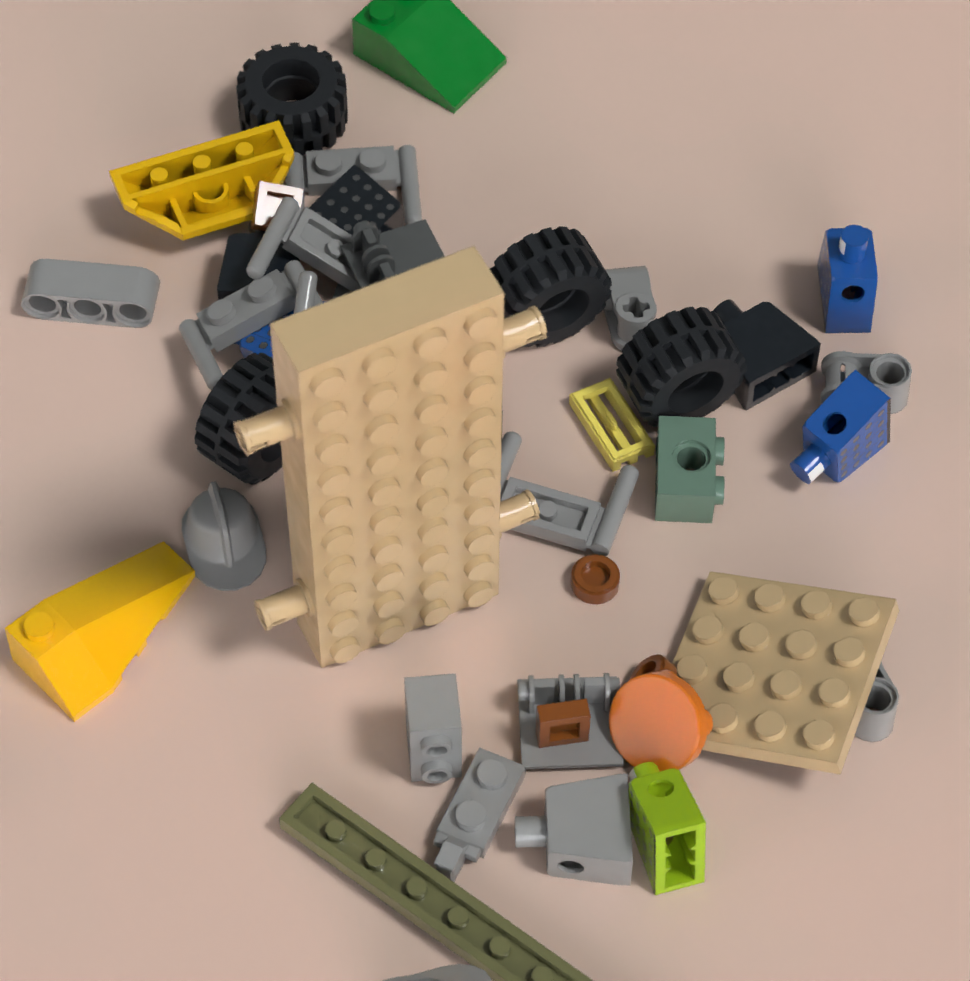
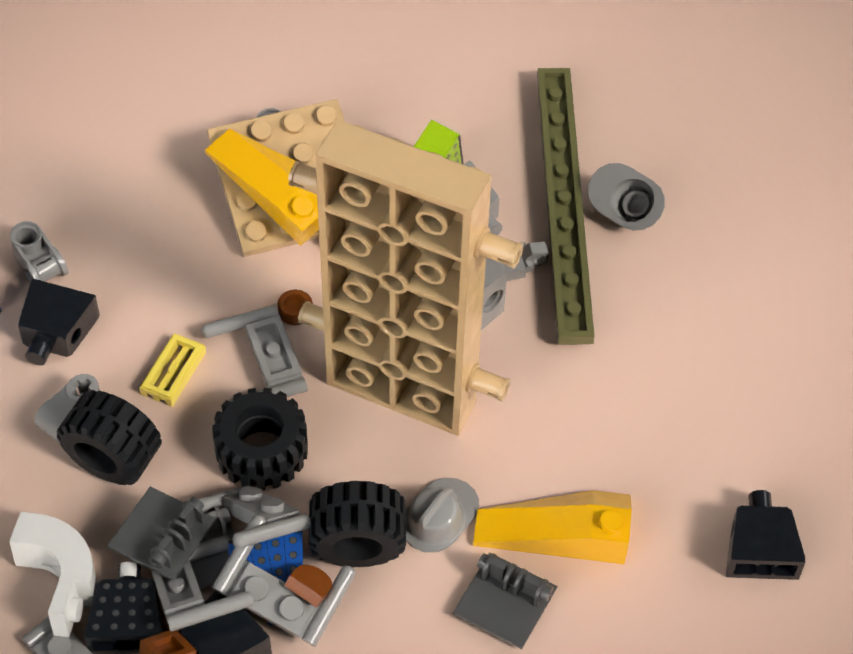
camera: 130 degrees left, 0 degrees up
(77, 521) = (505, 600): none -> dark grey hinge
(228, 337) = (309, 584): none -> dark orange tile
(452, 205) = (58, 548): none -> white arch
(681, 365) = (117, 327): black tyre -> none
(684, 493) = (199, 297): sand green brick -> none
(739, 624) = (265, 179): none -> yellow wedge
(844, 431) = (92, 234): blue torso -> none

